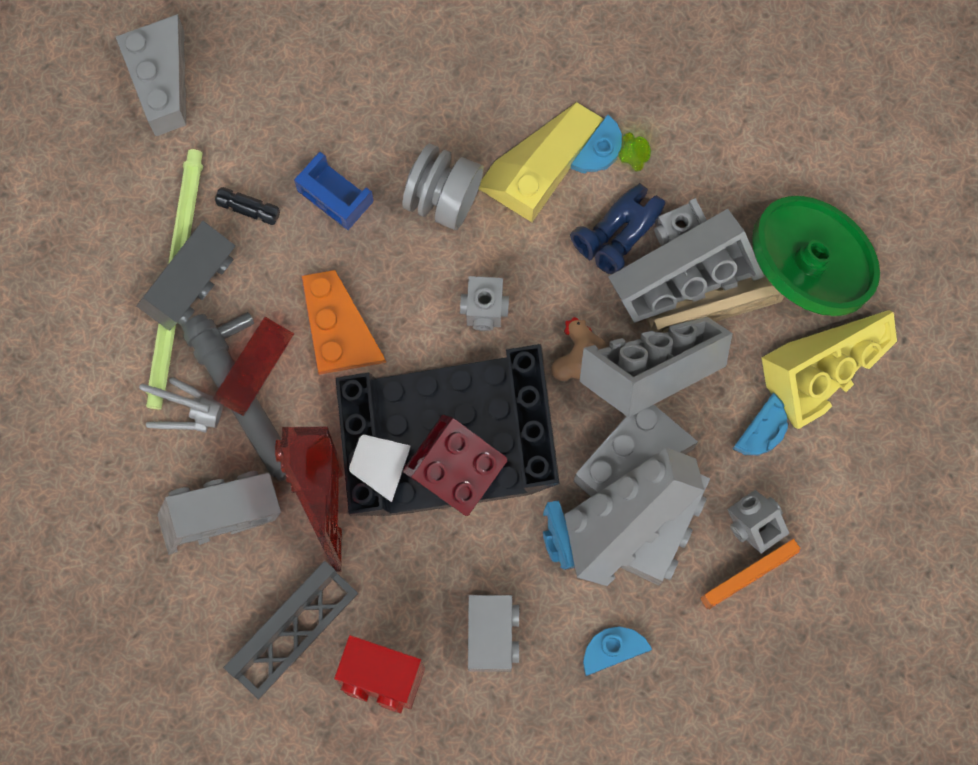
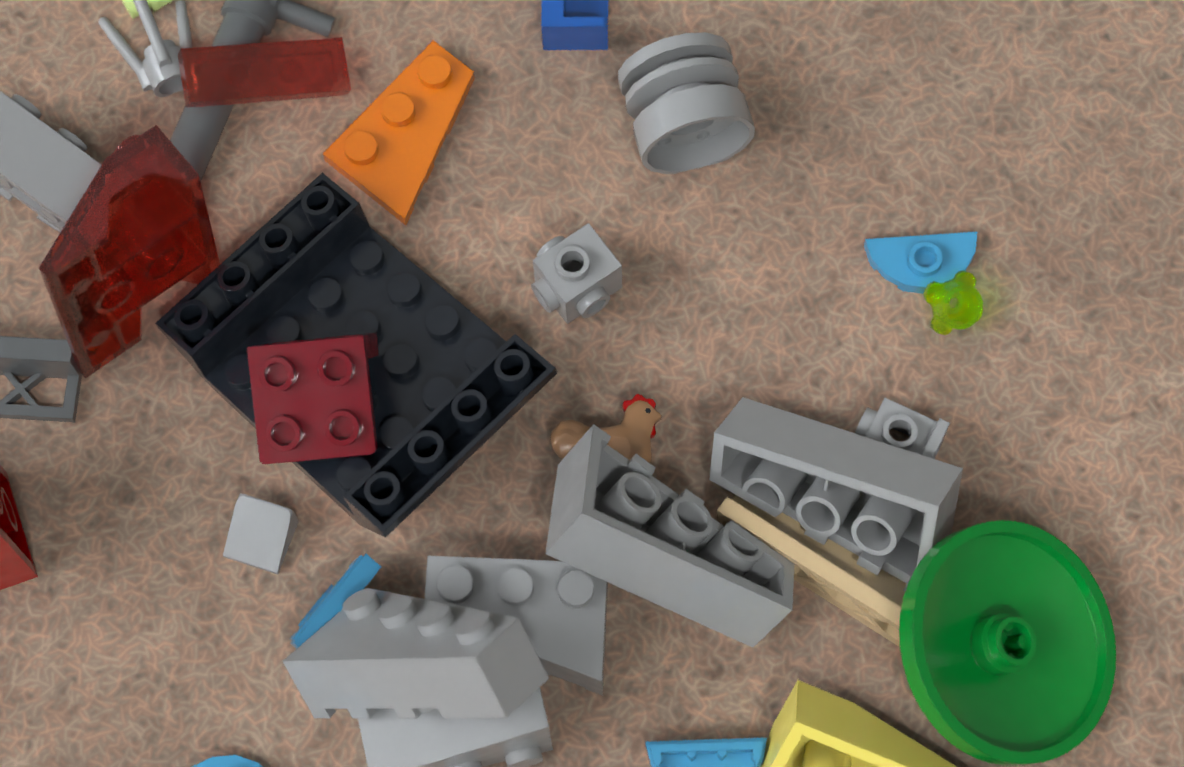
camera: 55 degrees right, 5 degrees down
(379, 463) = (246, 306): white sticker -> none
(491, 546) = (260, 533): none -> light grey slope
(491, 633) = (134, 617): light grey brick -> none
(535, 167) = (826, 202): light yellow wedge -> none
(623, 211) = (855, 351): dark blue piece -> none

